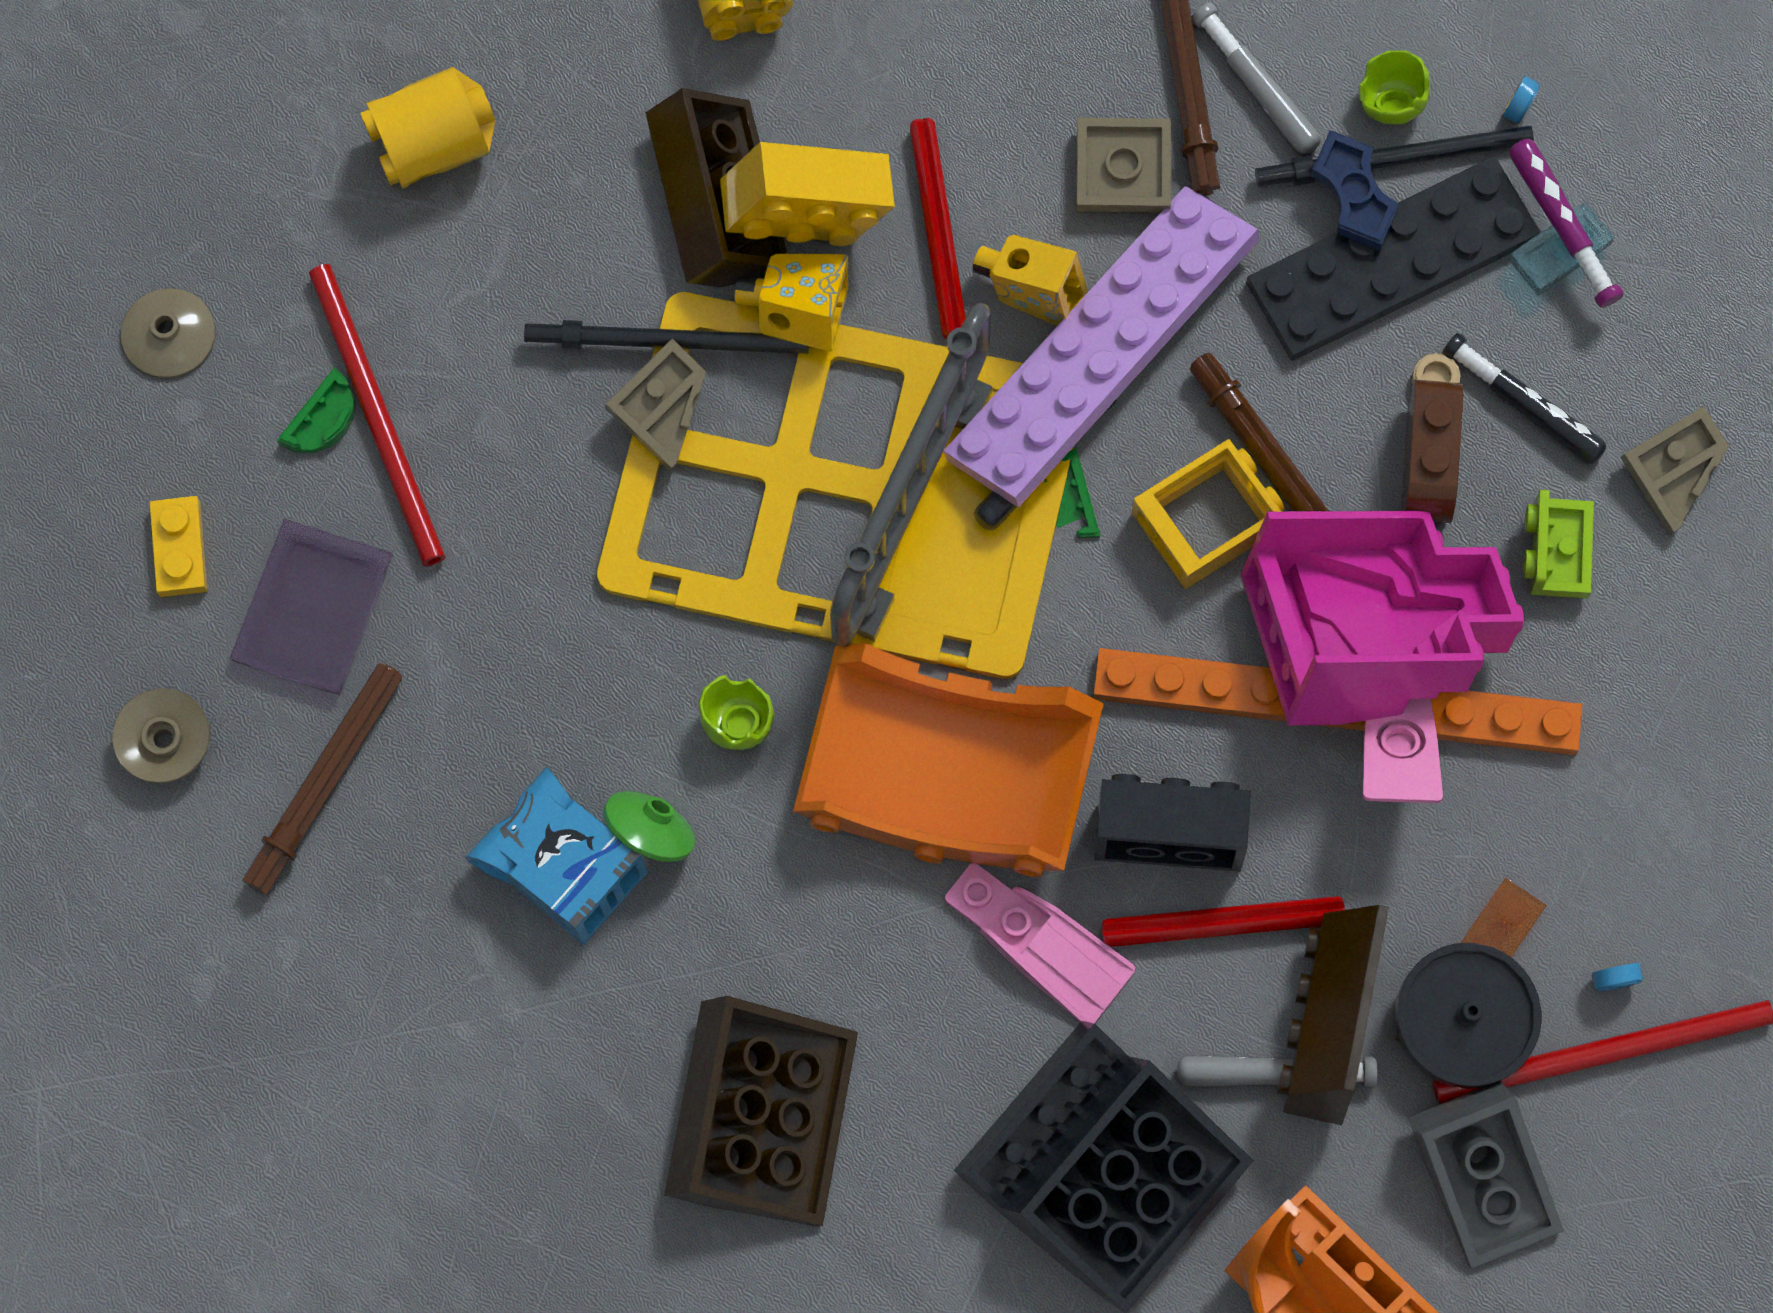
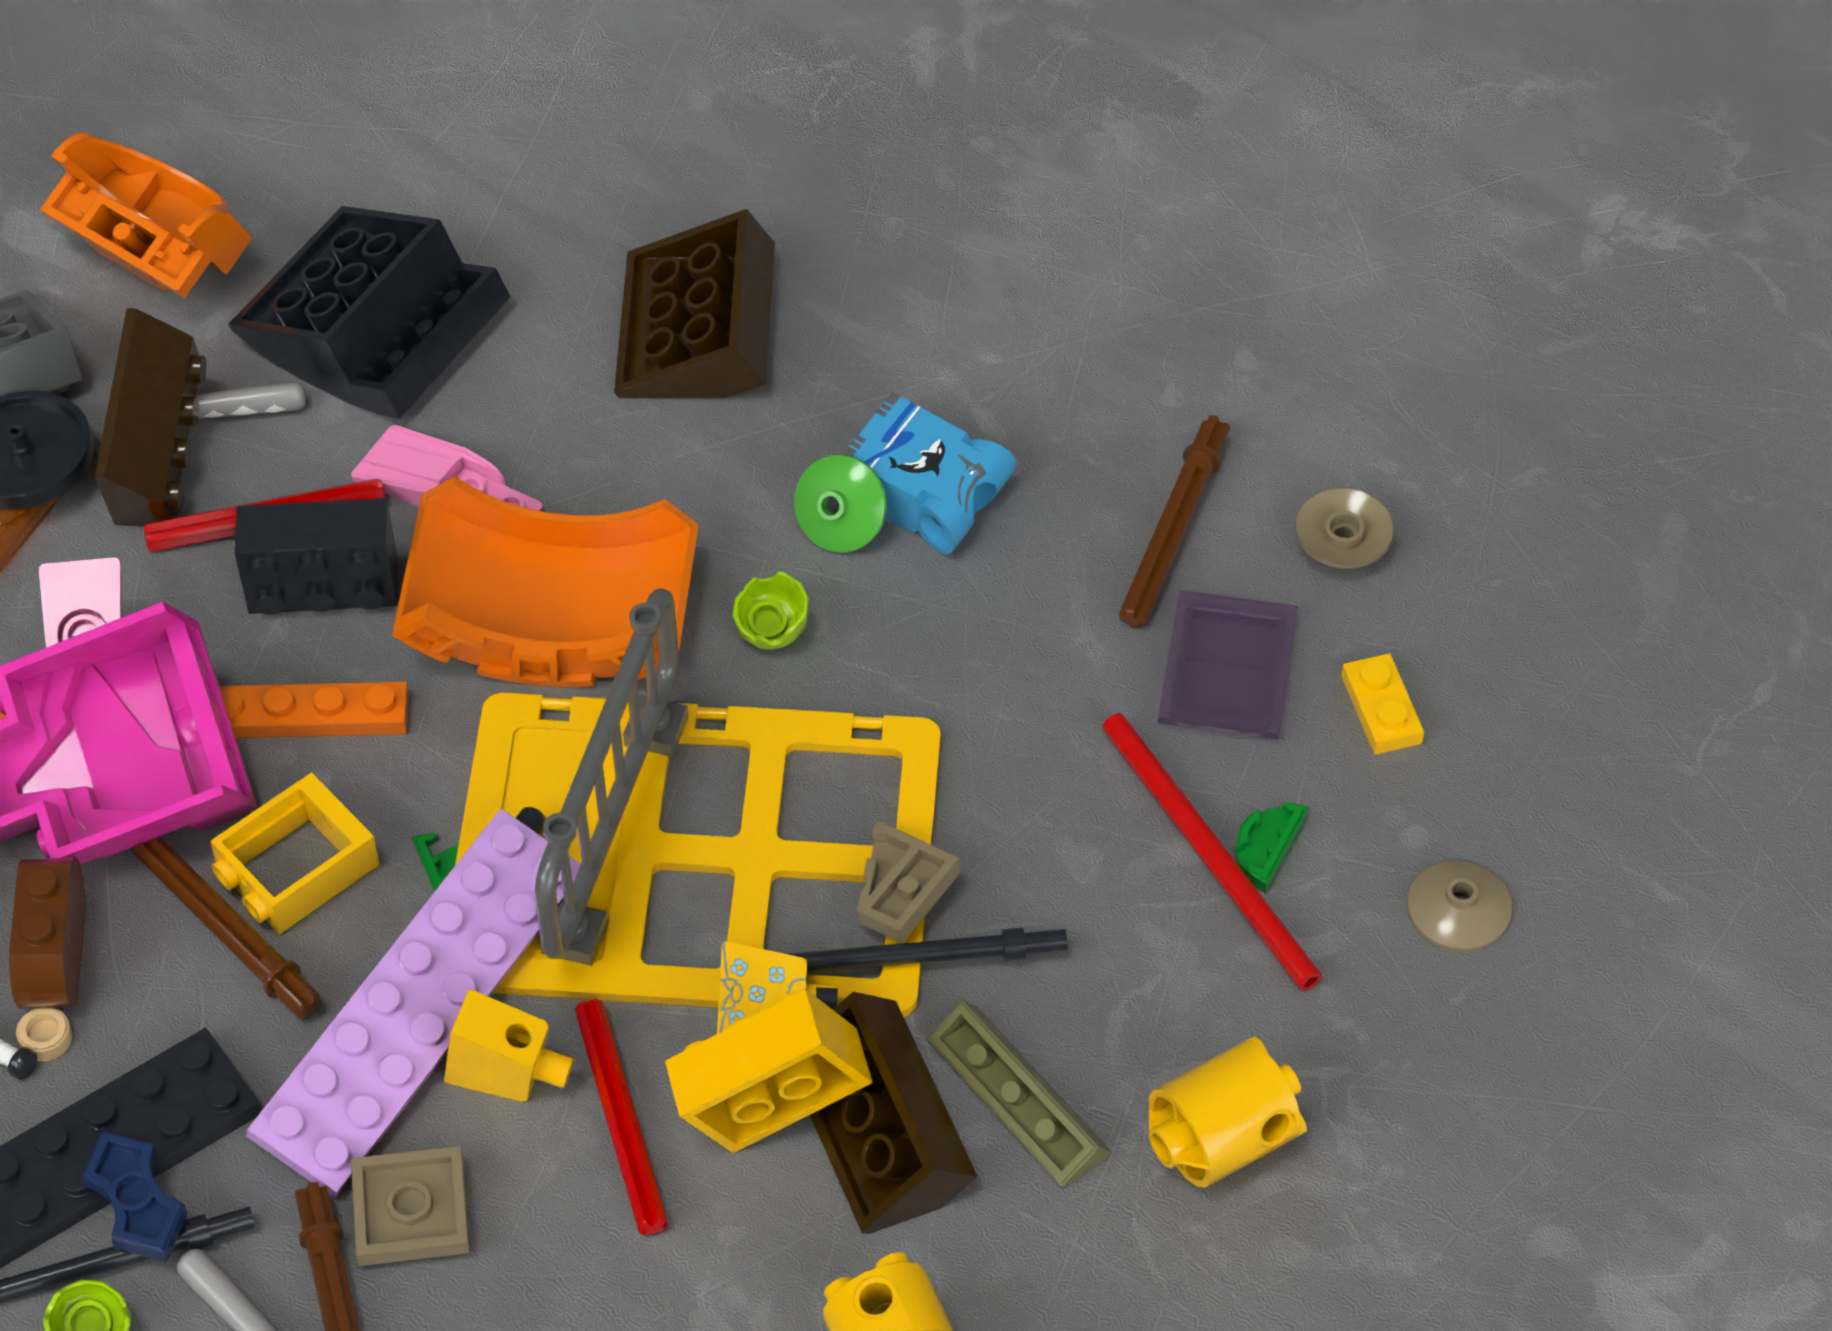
camera: 170 degrees right, 20 degrees down
(594, 206) = (1018, 1094): none -> olive slope

